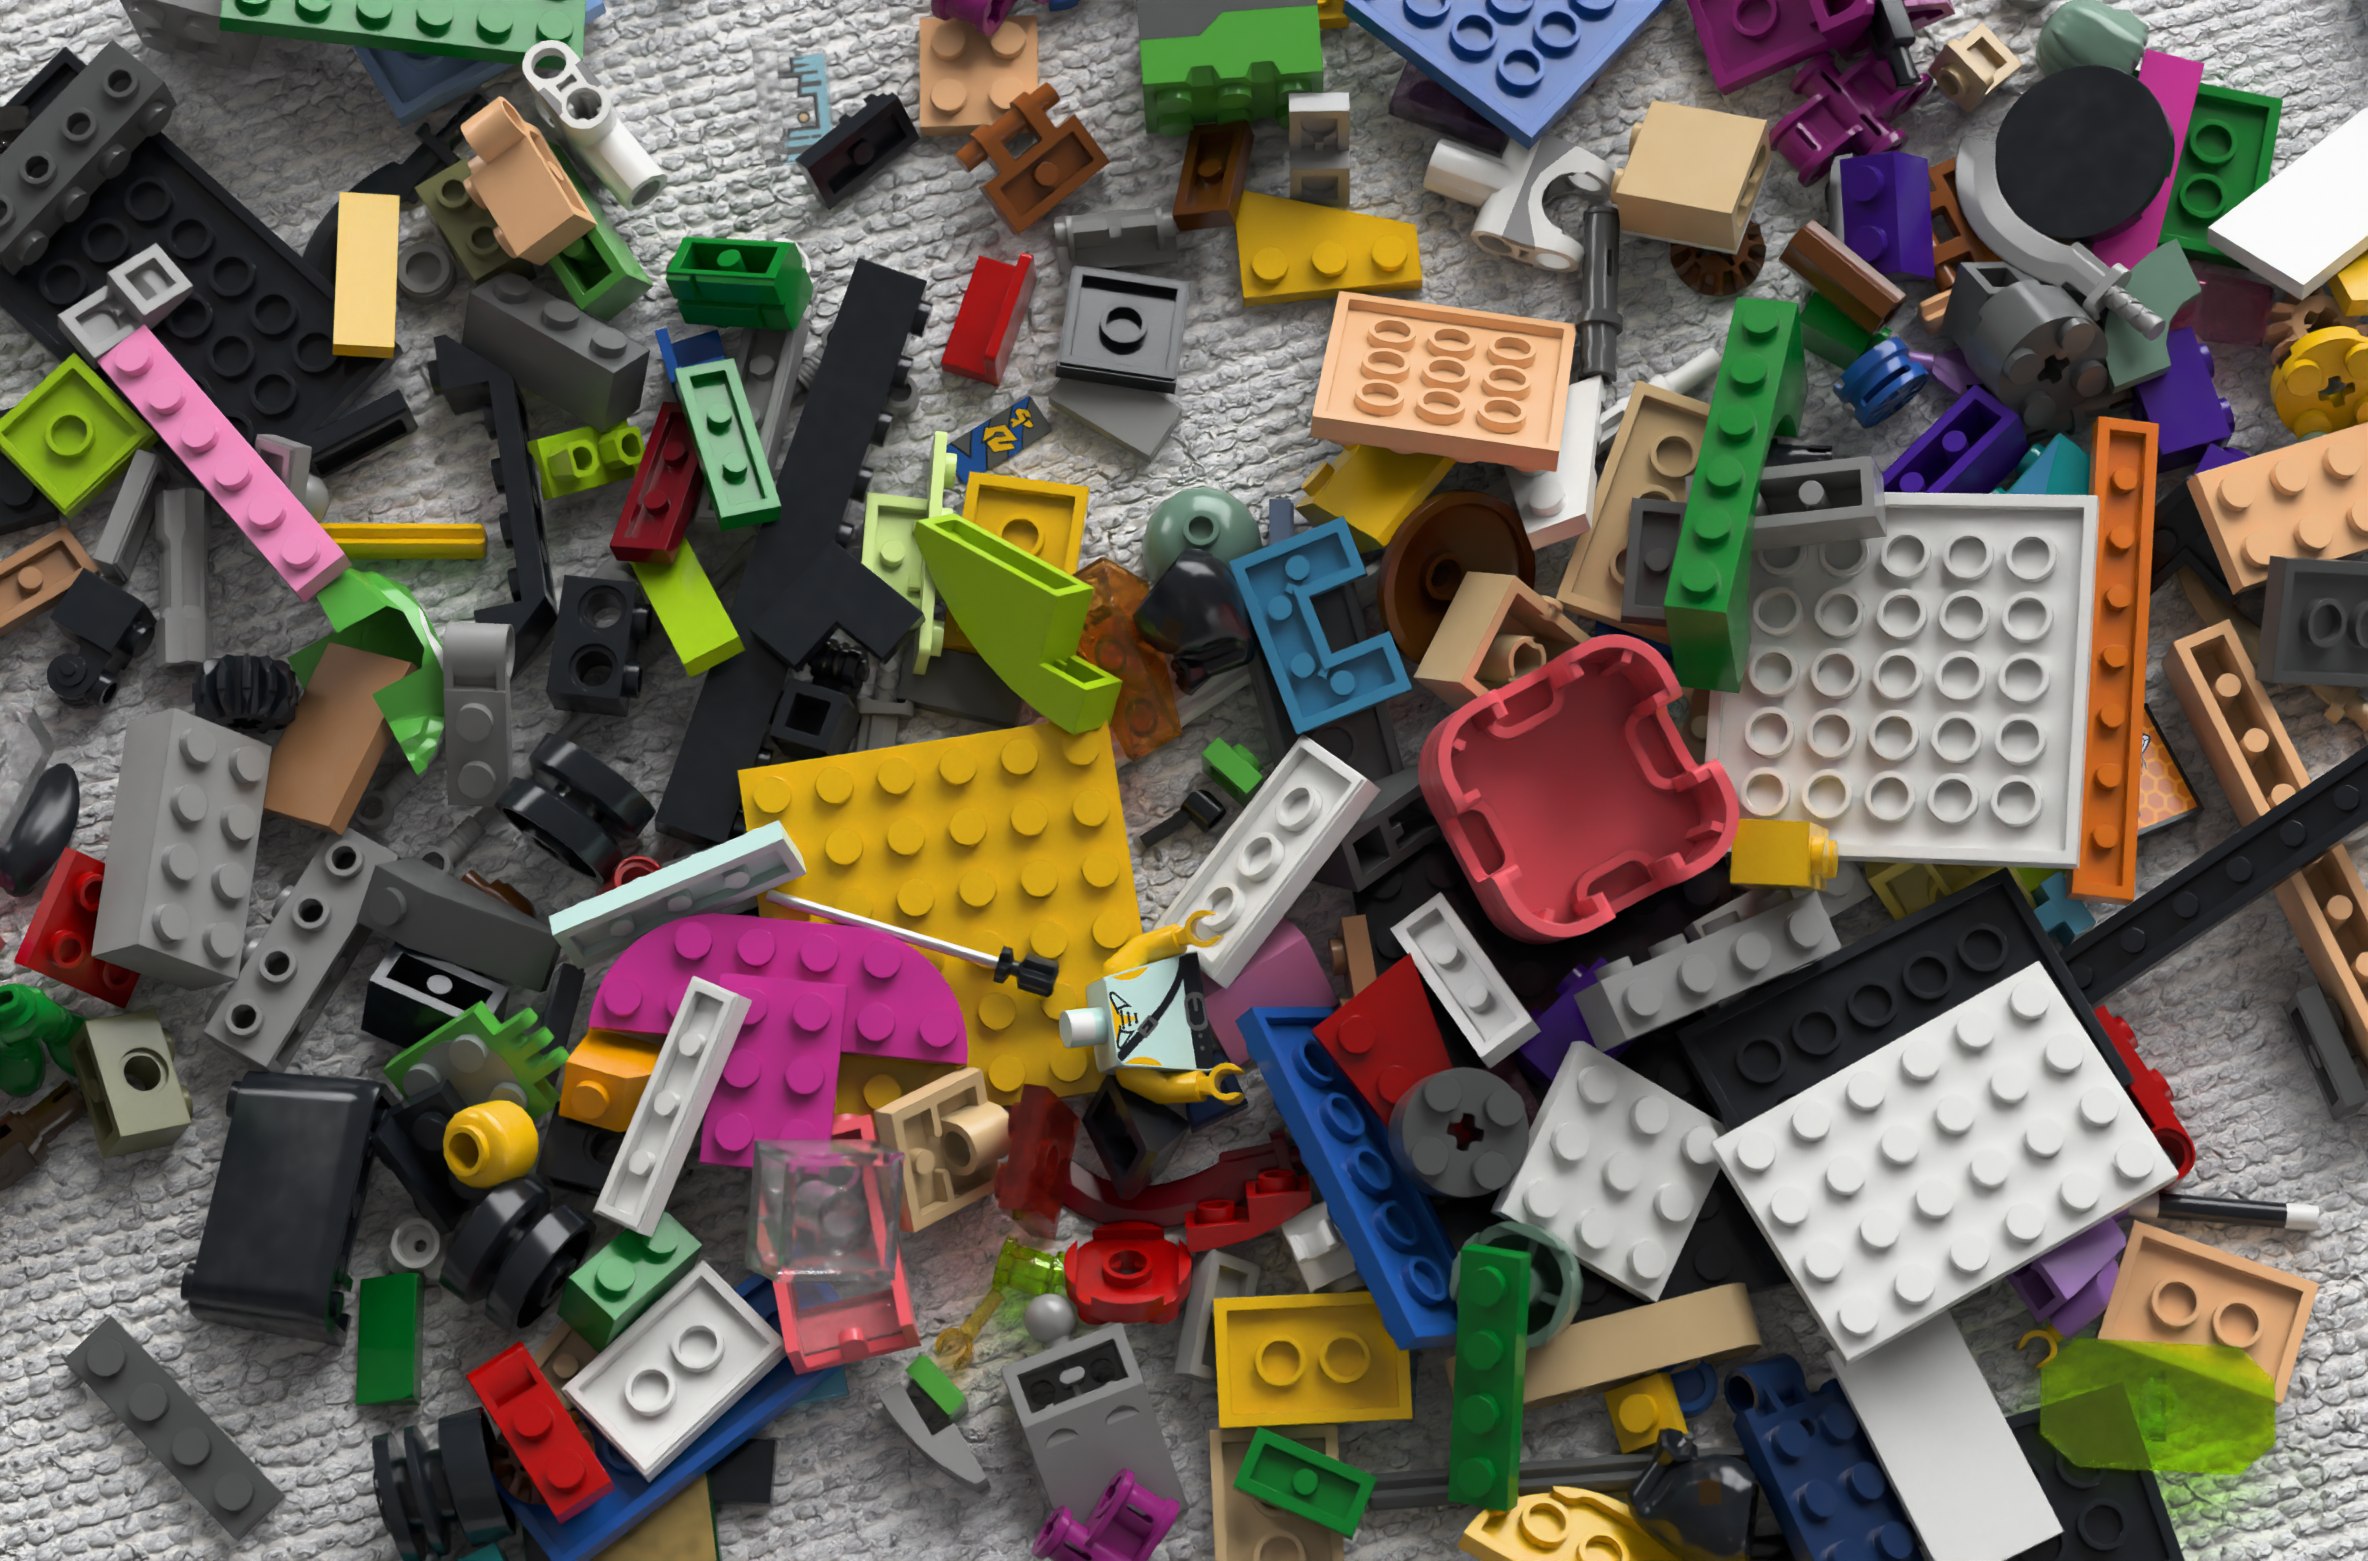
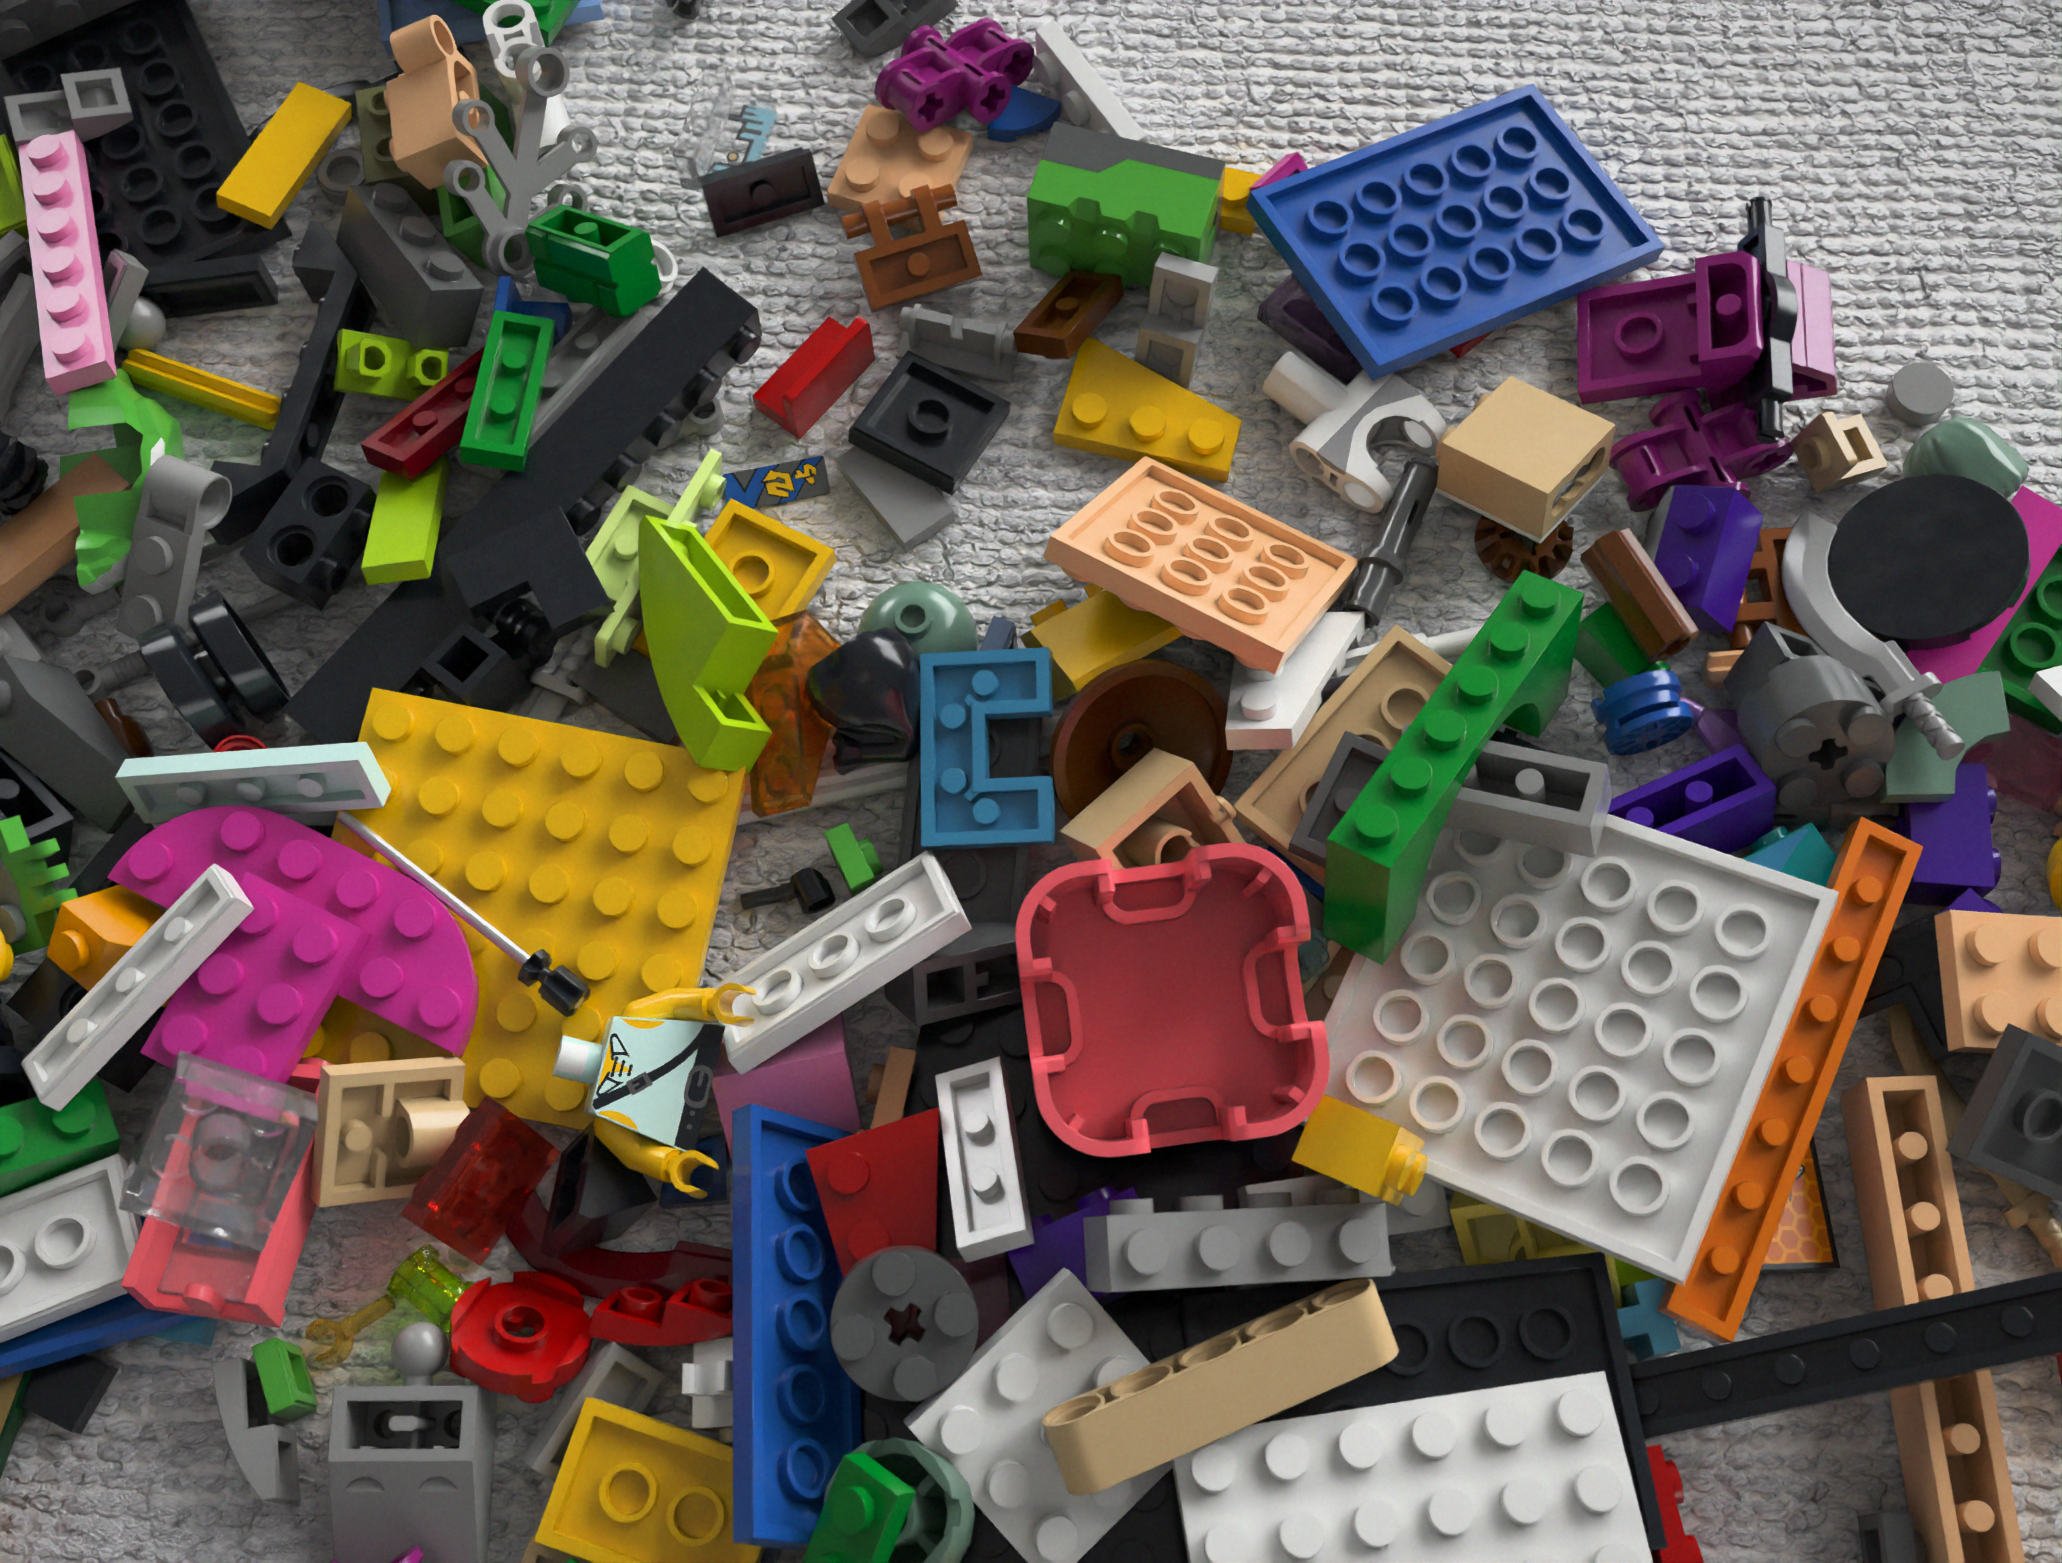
camera: 20 degrees right, 5 degrees down
(647, 296) = (519, 172): none -> light grey plant
(1737, 1085) = (1219, 1386): none -> tan beam

